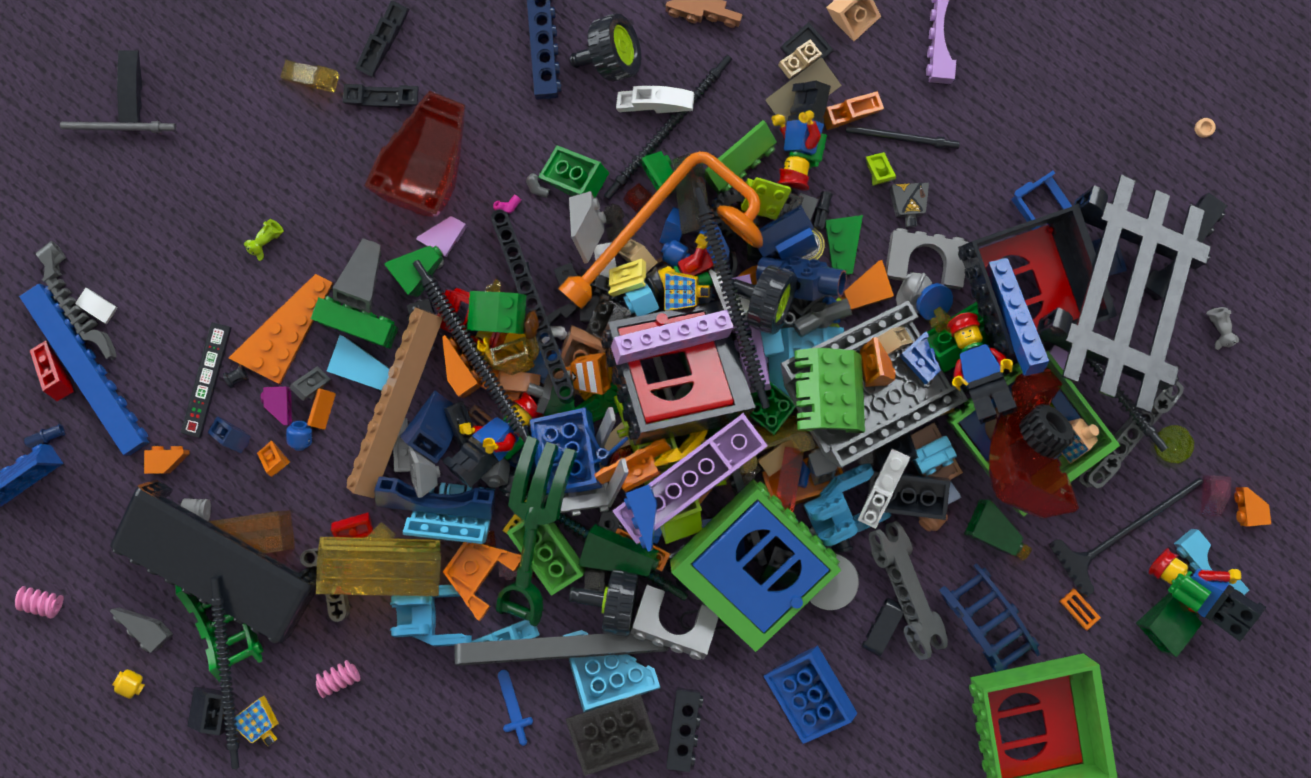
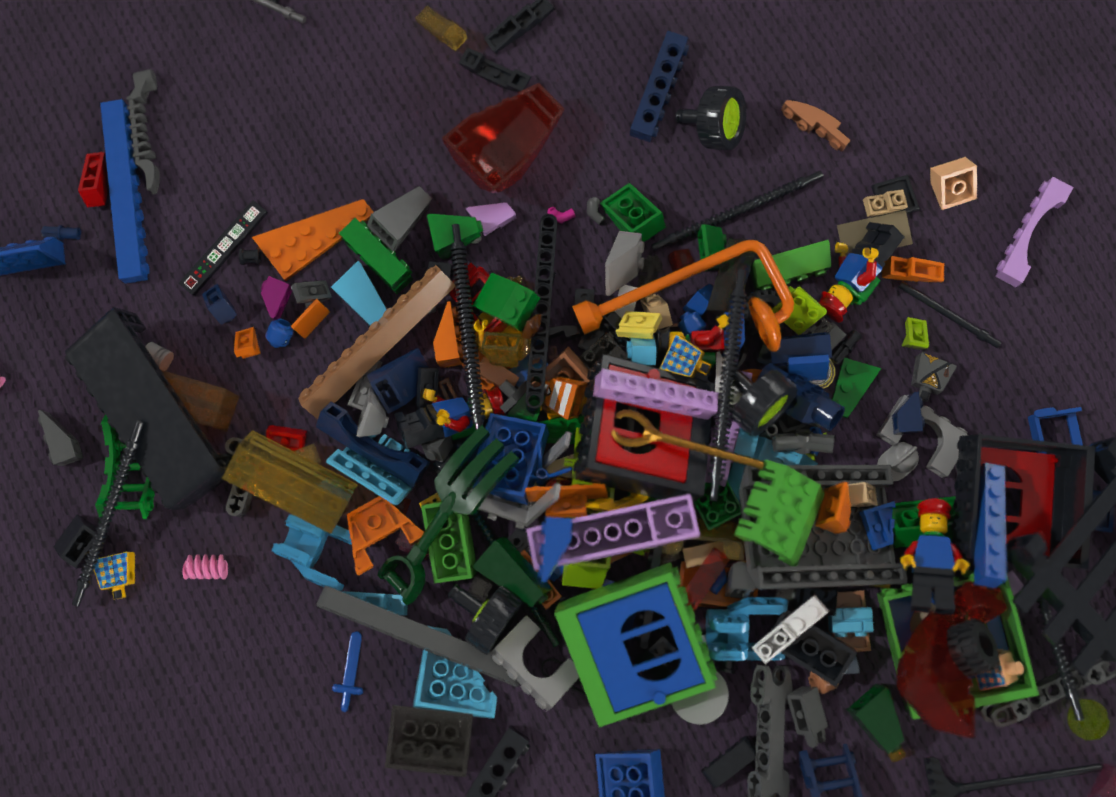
camera: 30 degrees right, 5 degrees down
(96, 305) = (161, 141): white slope -> none
(128, 683) = (21, 483): yellow head -> none
(163, 461) = (150, 301): orange slope -> none
(269, 231) = (339, 145): lime animal -> none
(558, 331) = (553, 347): white arm -> none
(655, 98) = (738, 179): white slope -> none
(684, 375) = (652, 434): none -> pearl gold piece
(869, 288) = (859, 437): orange slope -> none
(905, 250) = (908, 417): none -> dark blue slope
(932, 297) = (914, 477): blue tile -> none
(932, 554) = (808, 714): none -> dark grey hinge
(940, 321) = (913, 498): clear yellow tile -> none

